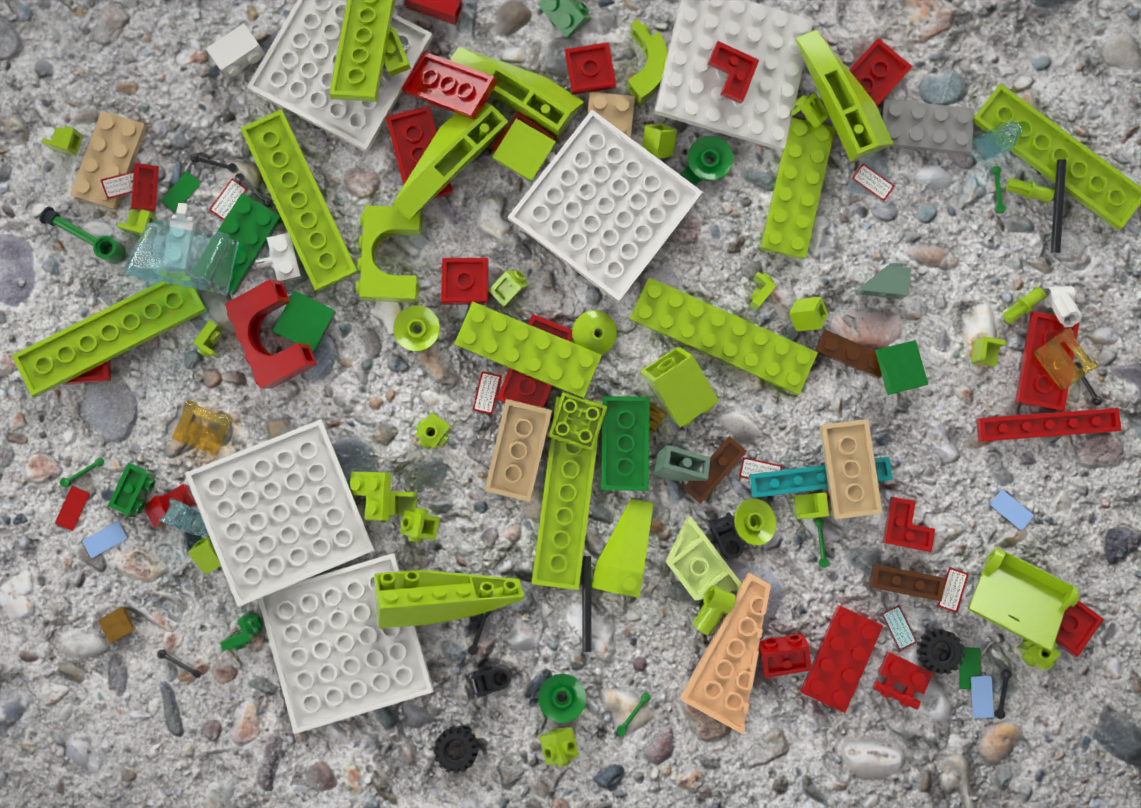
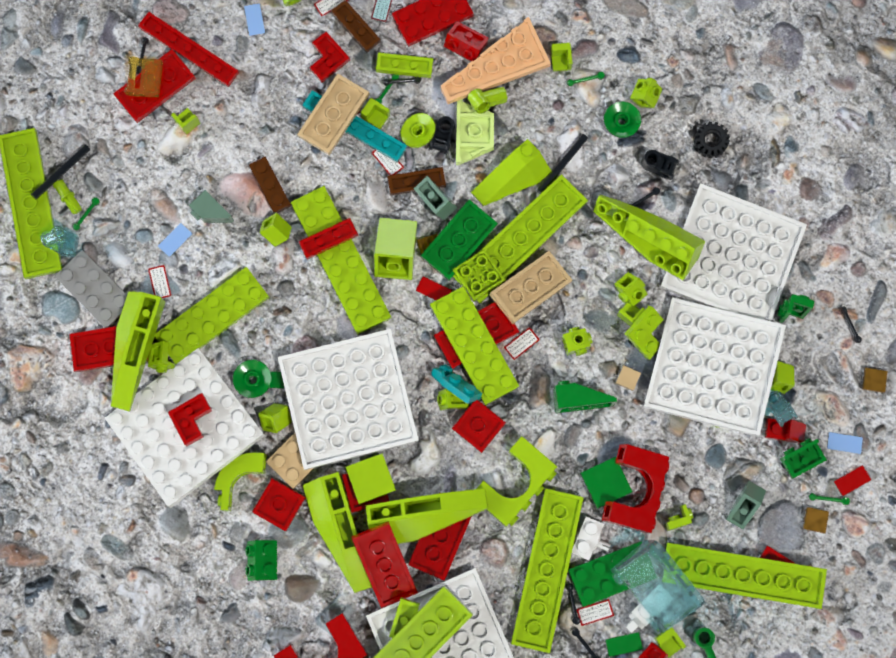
camera: 140 degrees left, 5 degrees down
(80, 441) = (815, 520): none -> pearl gold piece
(155, 403) = (746, 505): none -> sand green slope
(200, 435) = (733, 463): clear yellow plate -> none
(358, 438) = (628, 378): none -> tan tile
(388, 375) = (575, 397): none -> green slope
(408, 320) = (535, 408): lime dish -> none
(514, 299) = (455, 384): none -> teal hinge
(584, 330) = (421, 332): lime dish -> none
(611, 378) = (432, 289): none -> red sticker
(675, 717) = (561, 57): none -> lime panel
(751, 343) = (328, 238): none -> red tile
(759, 294) = (295, 264): lime bracket -> none
(800, 576) = (417, 80): none -> black hinge
(824, 580) = (404, 65): none -> lime plate
(894, 232) = (175, 239): none -> light blue sticker
(901, 367) = (247, 150): green tile -> none
(1024, 305) = (137, 130): lime axle -> none
(1063, 303) = (113, 112): white piece -> none

